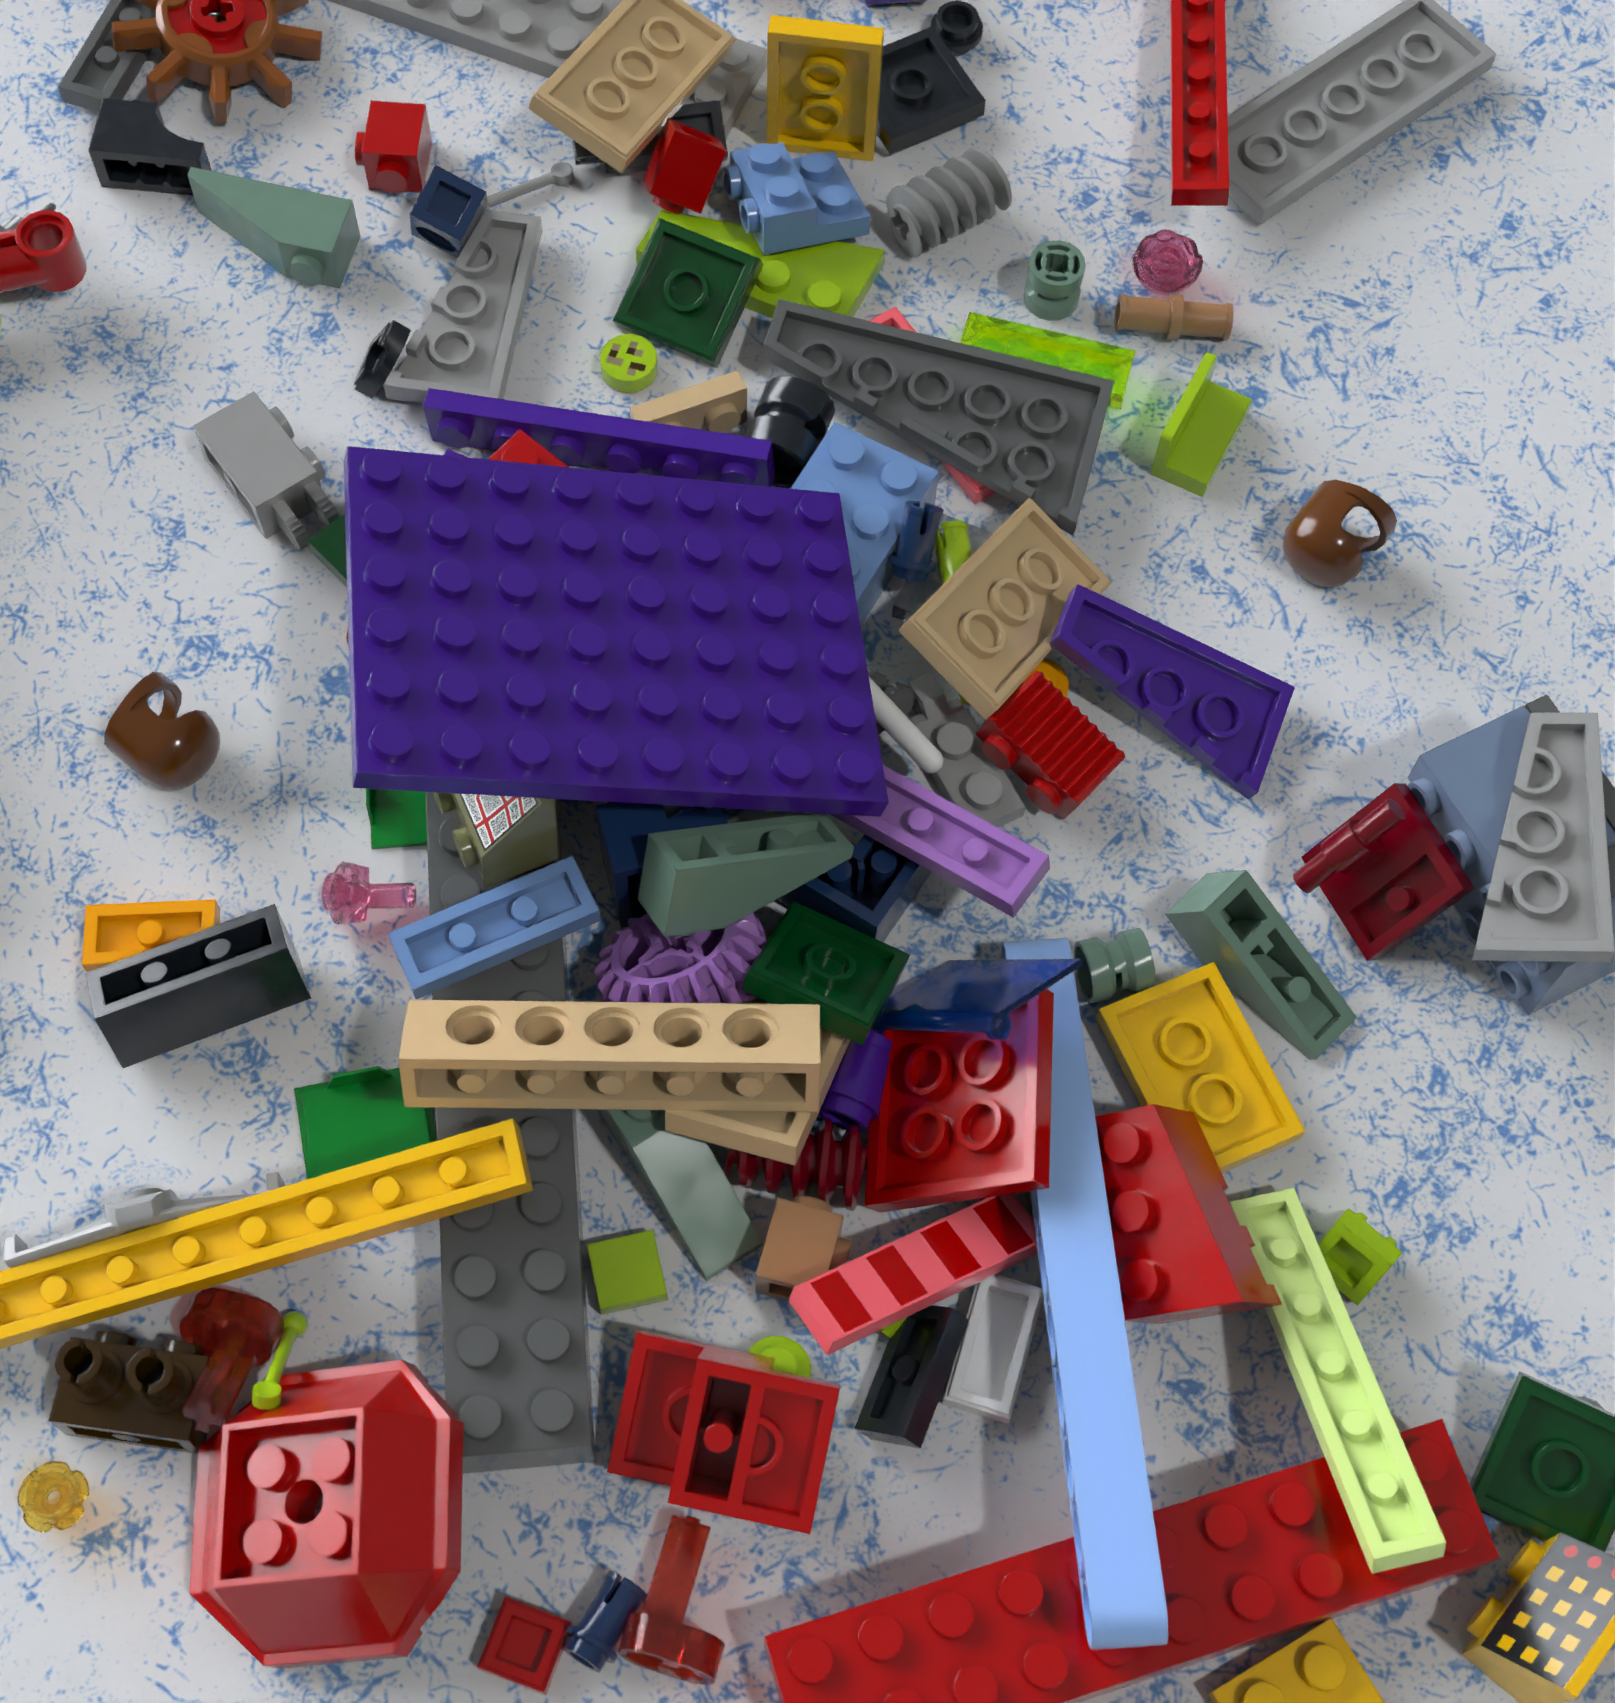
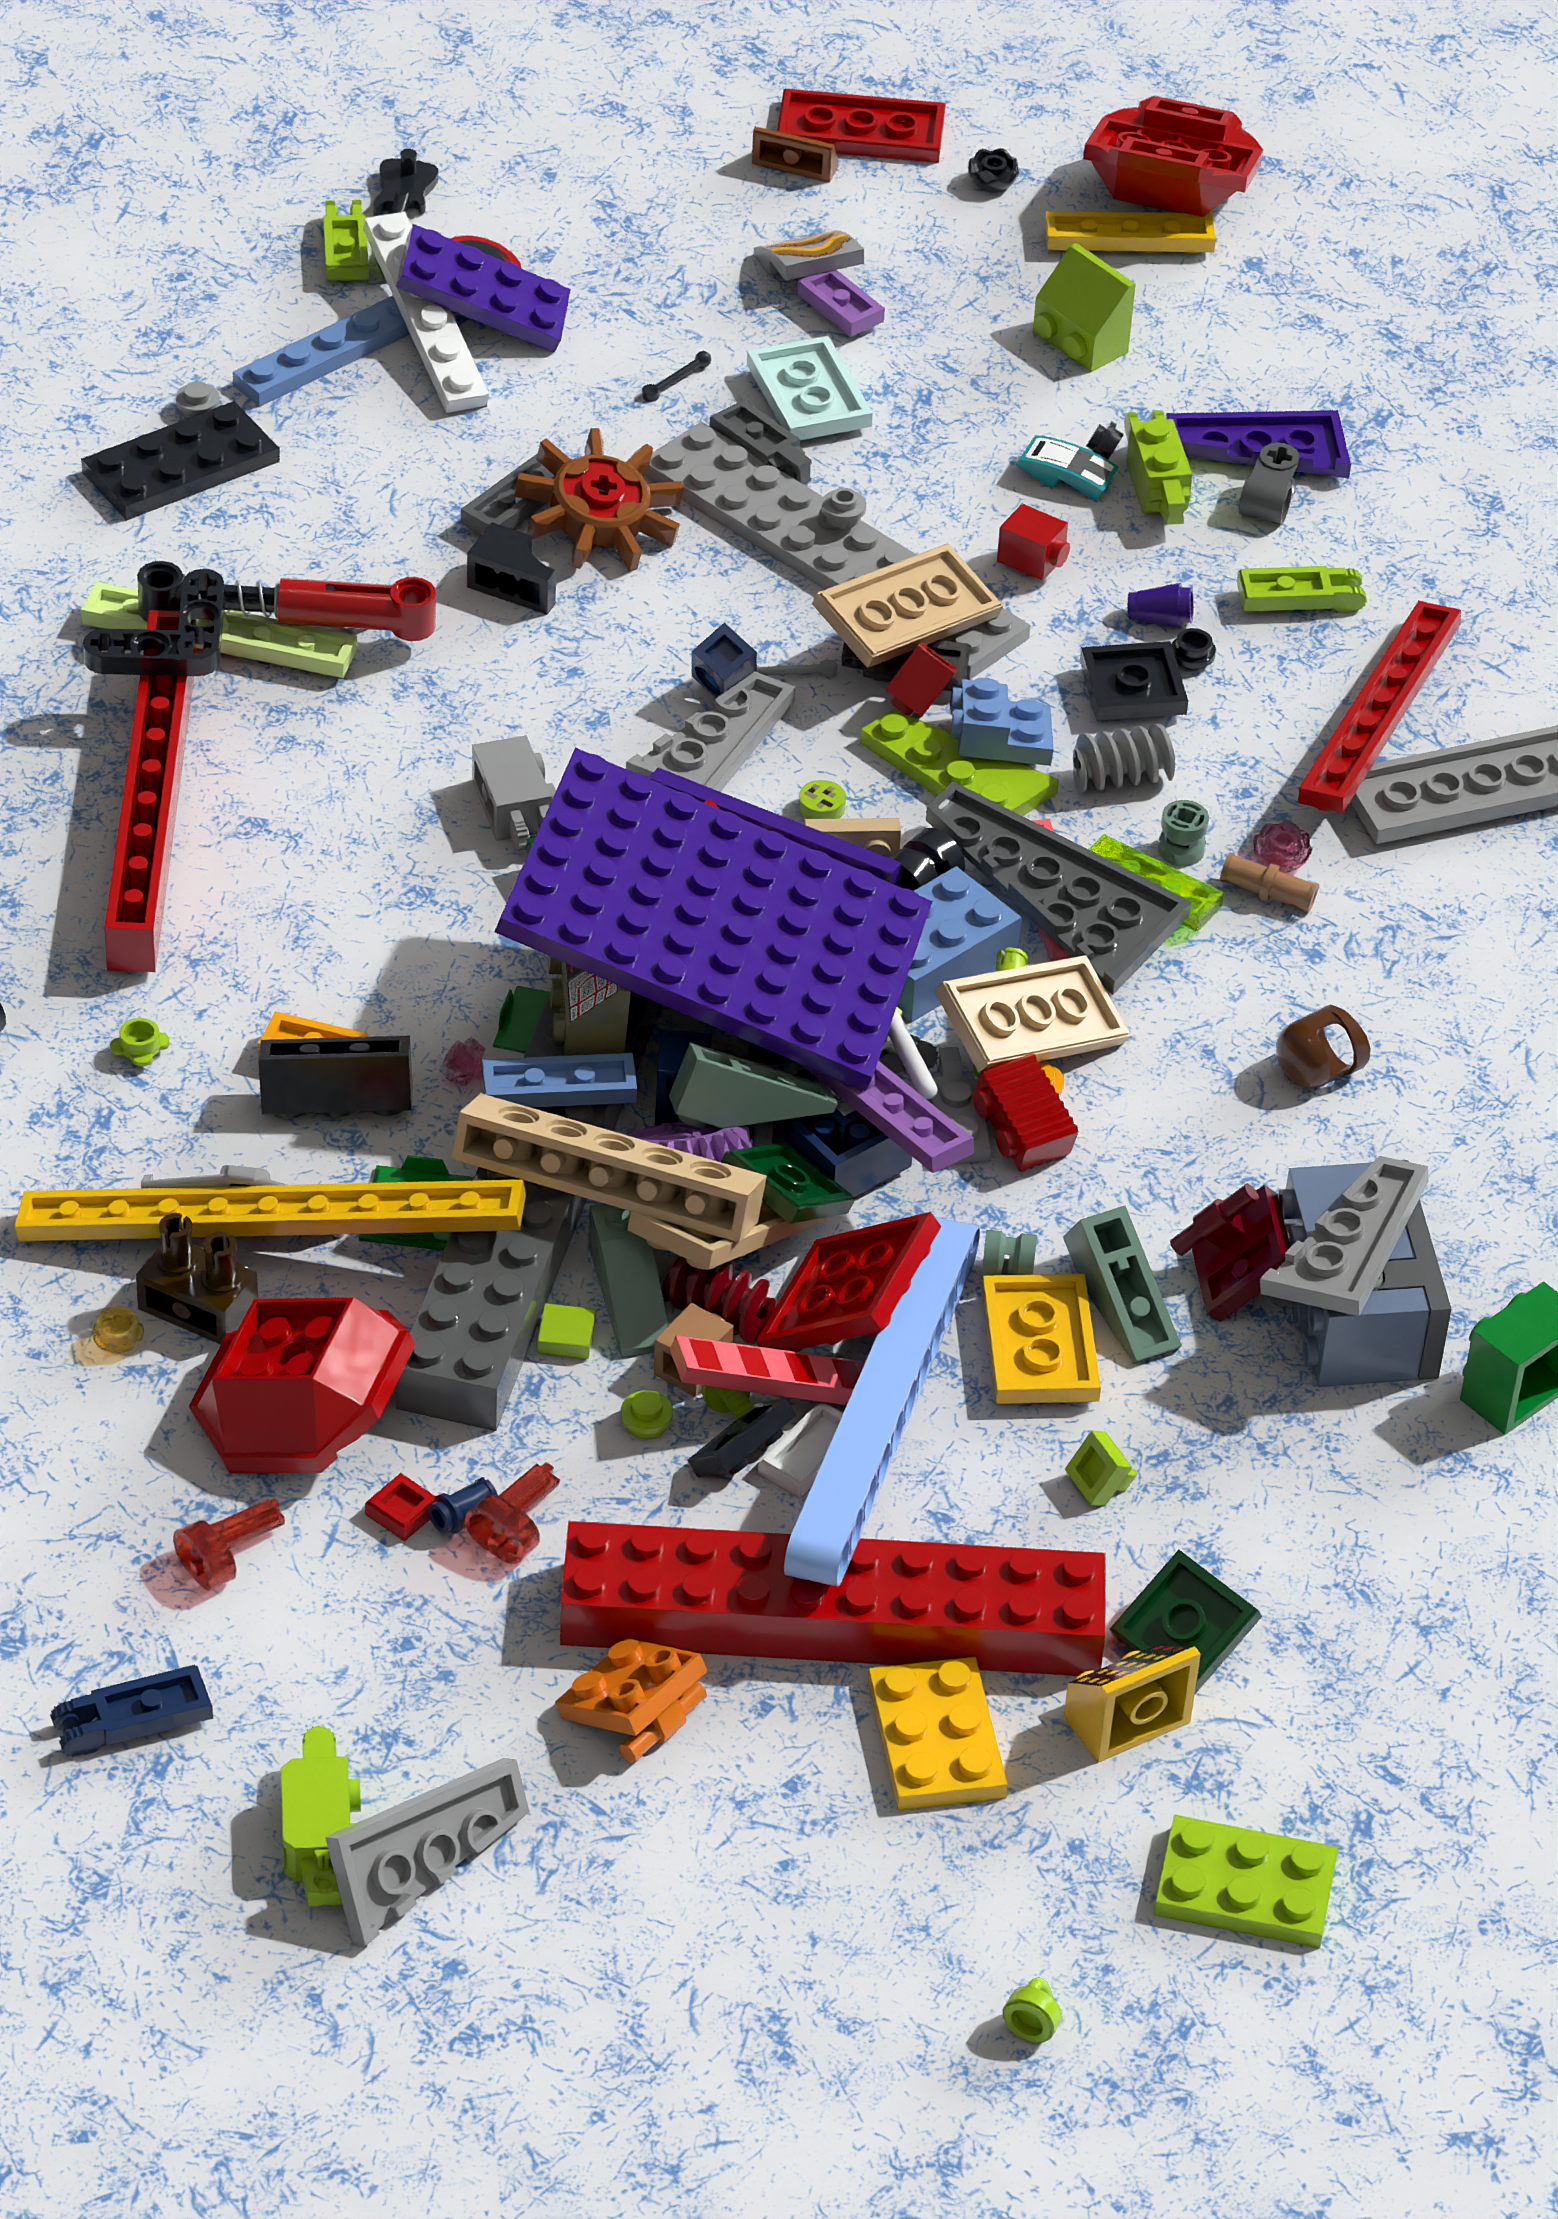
camera: 20 degrees right, 20 degrees down
(162, 748) = (370, 935): reddish brown helmet -> none
(238, 1342) = (285, 1276): clear red piece -> none
(267, 1393) = (317, 1290): lime hinge -> none
(289, 228) = (594, 643): sand green slope -> none
(381, 358) = (634, 743): black tile -> none
(395, 146) = (702, 610): red brick -> none
(688, 292) = (888, 764): dark green plate -> none
(724, 1431) = (592, 1407): red bracket -> none
(823, 86) = (1051, 650): yellow plate -> none
(858, 1084) = (783, 1262): dark purple cone -> none
(916, 542) = (981, 958): dark blue pin -> none
(971, 995) = (875, 1215): clear blue piece -> none
(1172, 1221) = (966, 1396): red wedge -> none
(1187, 690) = (1150, 1109): dark purple wing -> none
(1199, 431) = (1249, 956): lime panel -> none
(1340, 1388) = (1036, 1502): yellowish green plate -> none

